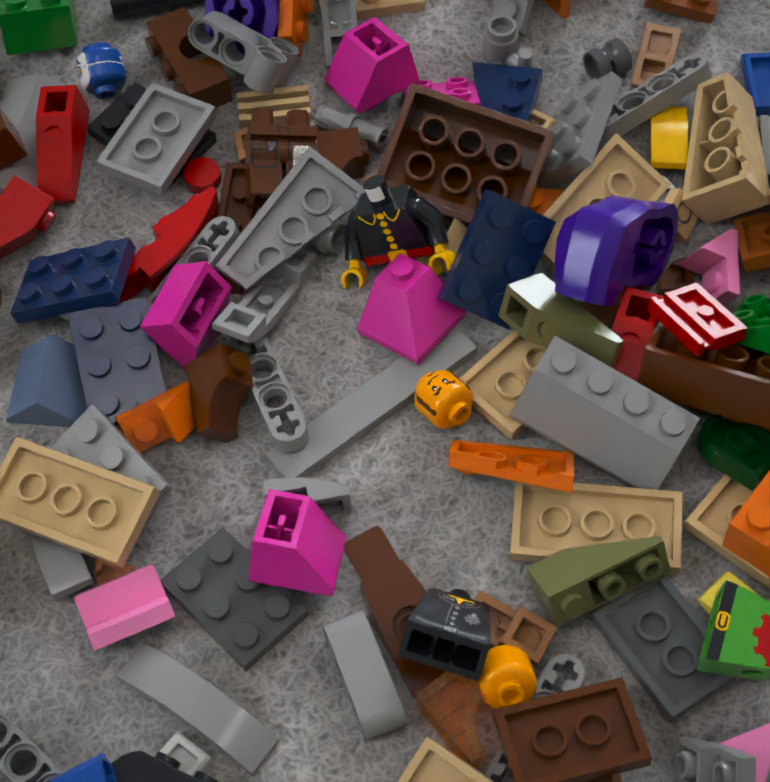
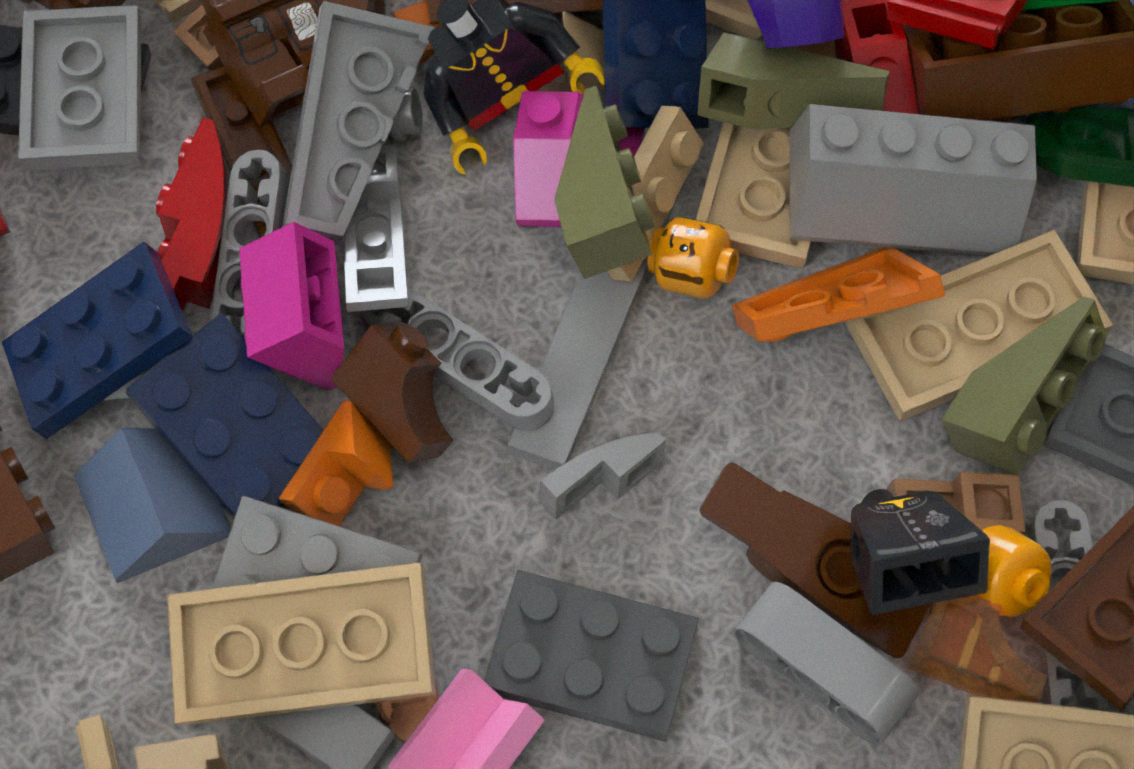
camera: 35 degrees left, 5 degrees up
(201, 174) = (167, 111): red tile -> none
(296, 545) = (638, 544): dark pink slope -> none
(394, 330) = (595, 192): none -> olive slope
(436, 346) = (663, 165): none -> tan plate

